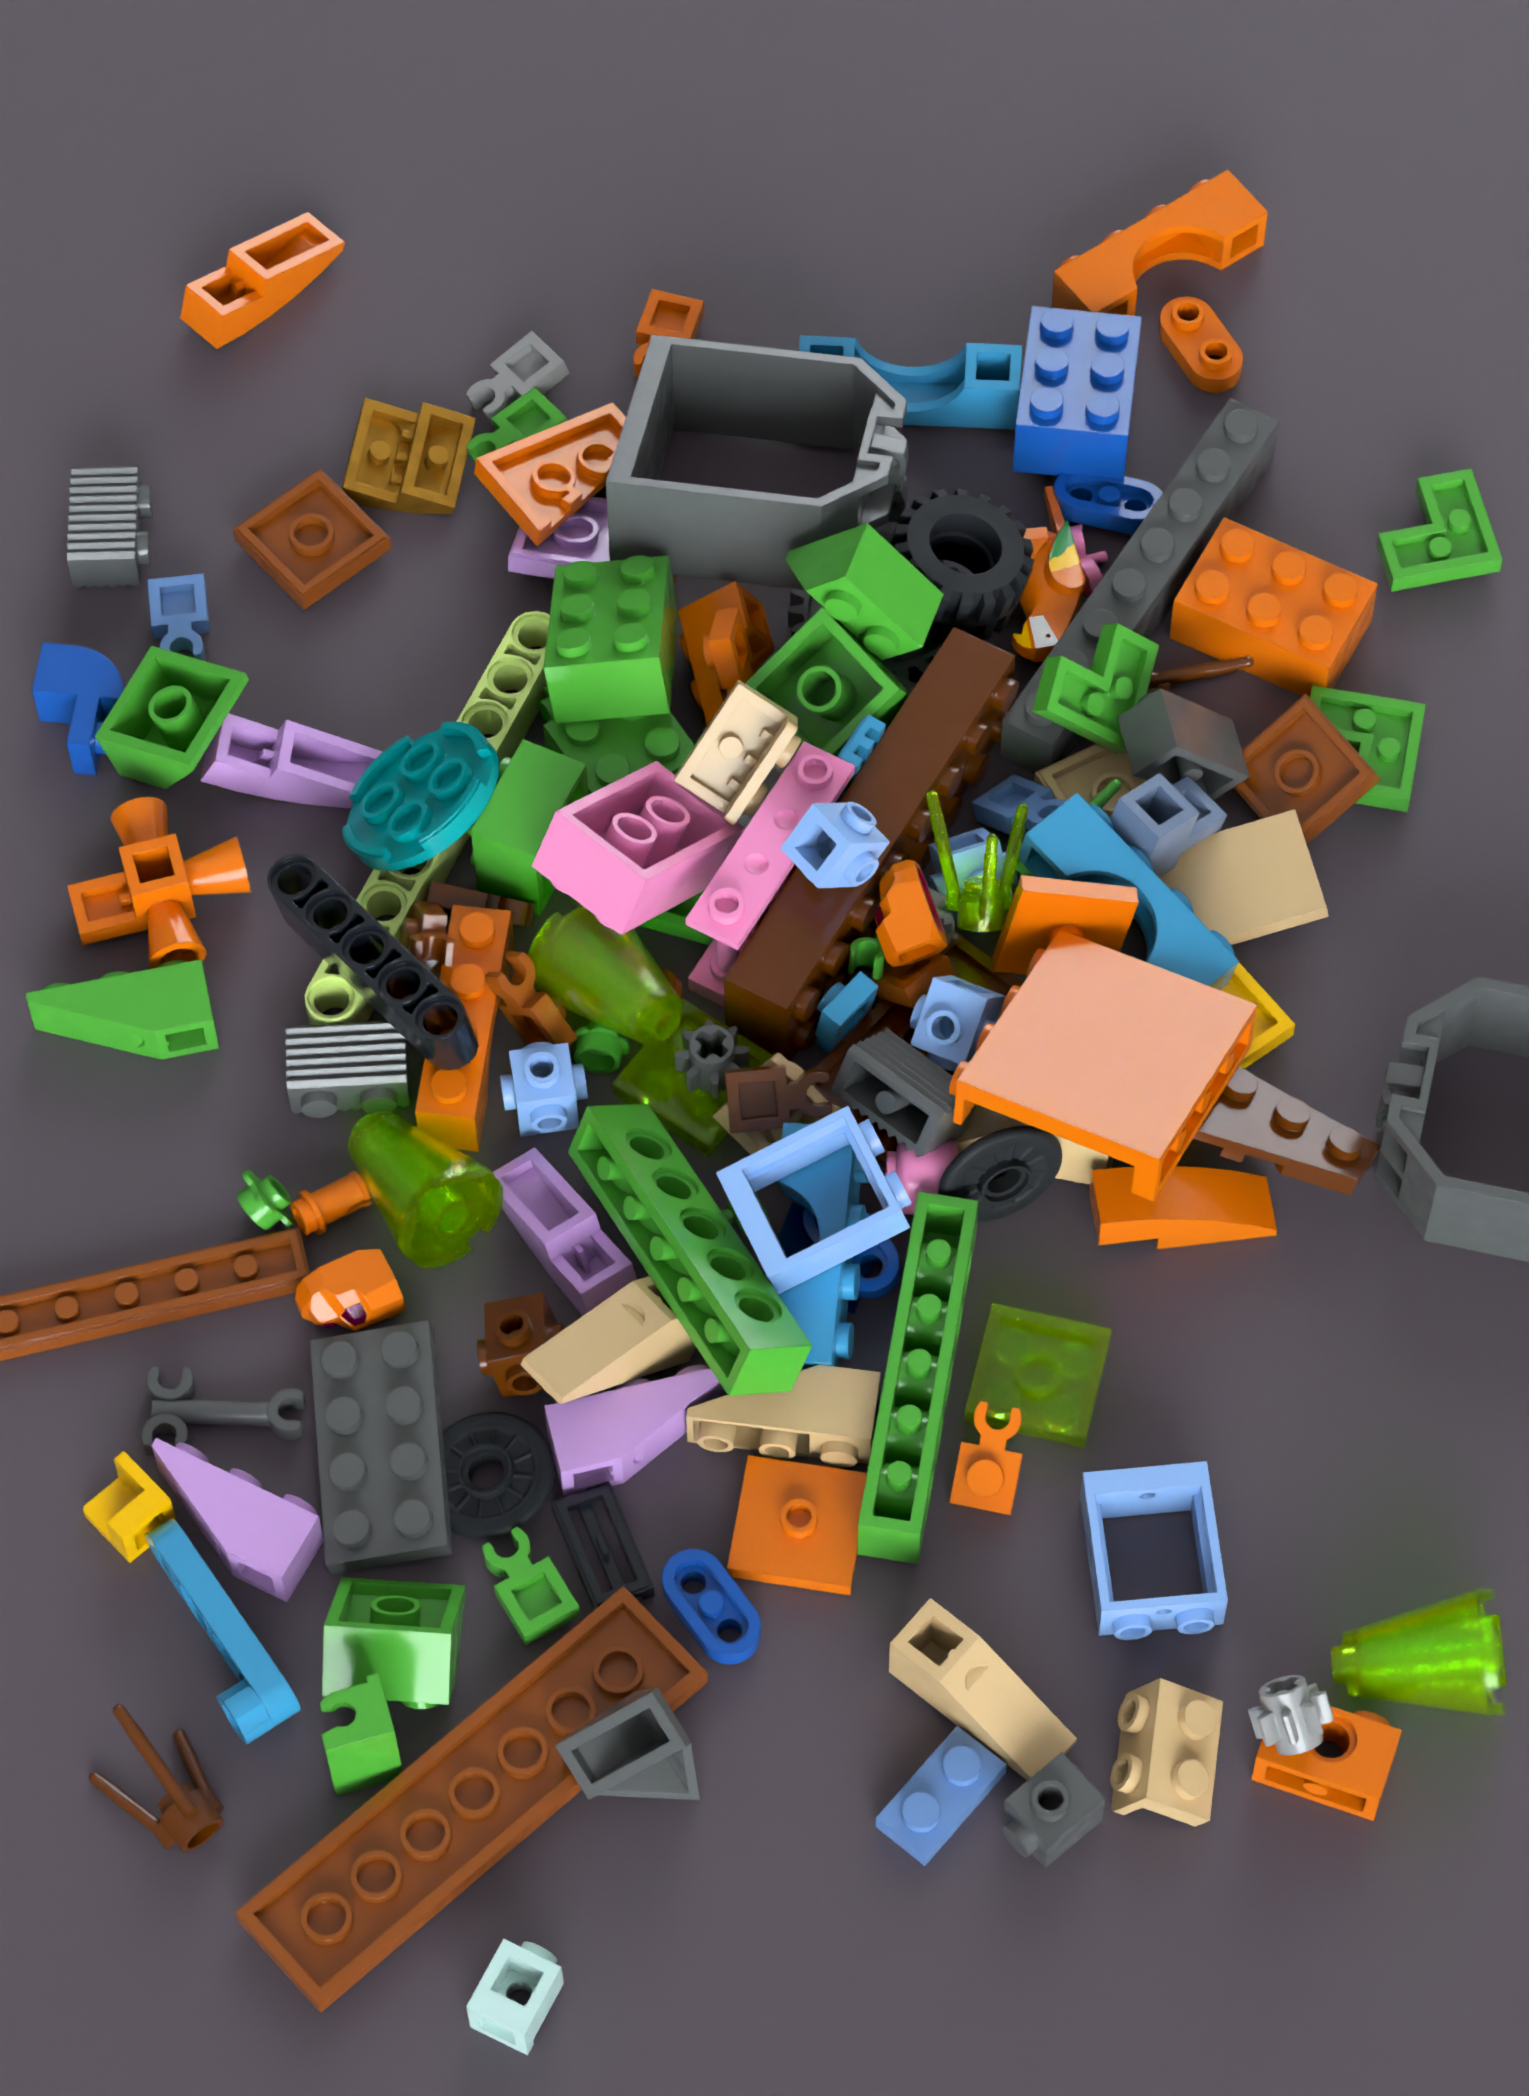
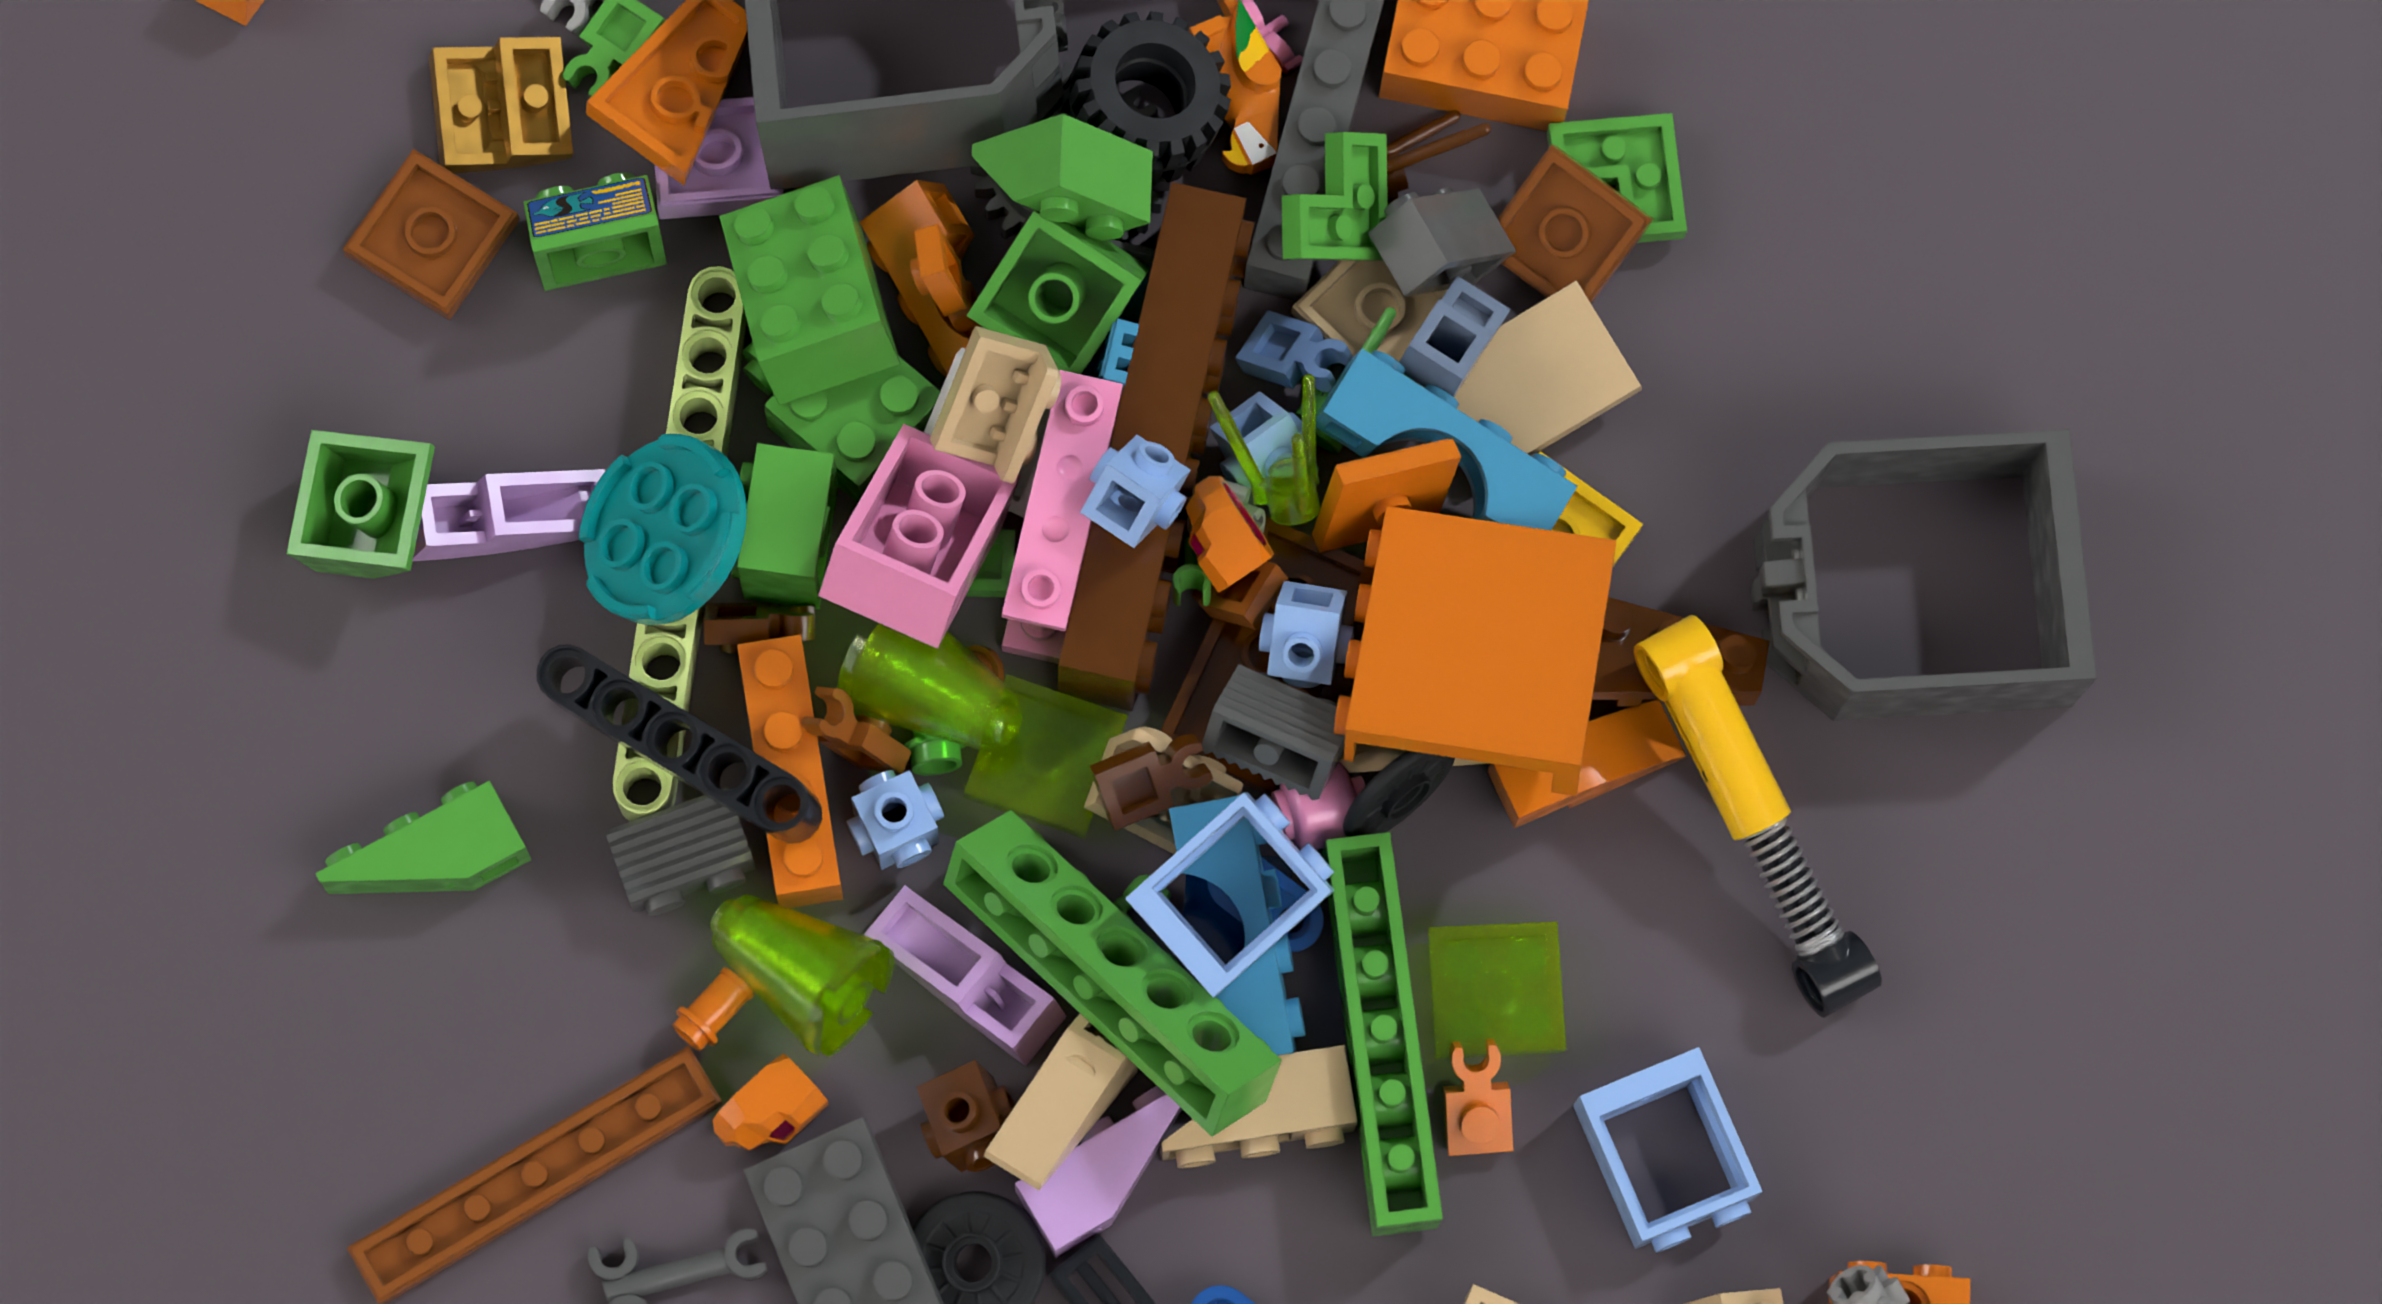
camera: 25 degrees left, 15 degrees up
(80, 690) = (244, 487): blue brick -> none
(106, 526) = (202, 281): dark grey brick -> none
(155, 885) = (407, 703): orange brick -> none
(179, 612) = (317, 365): medium blue plate -> none
(265, 1200) = (645, 1028): bright green plate -> none
(426, 936) = (720, 690): dark orange plate -> none
(448, 568) = (594, 231): none -> bright green slope
(708, 1054) = (1055, 729): dark grey gear -> none
(797, 1525) = (1304, 1222): orange plate -> none
(843, 1010) = (1183, 649): dark azure plate -> none
(1288, 1132) = (1685, 672): none -> piece
(1428, 1657) = (1971, 1188): clear neon green cone -> none

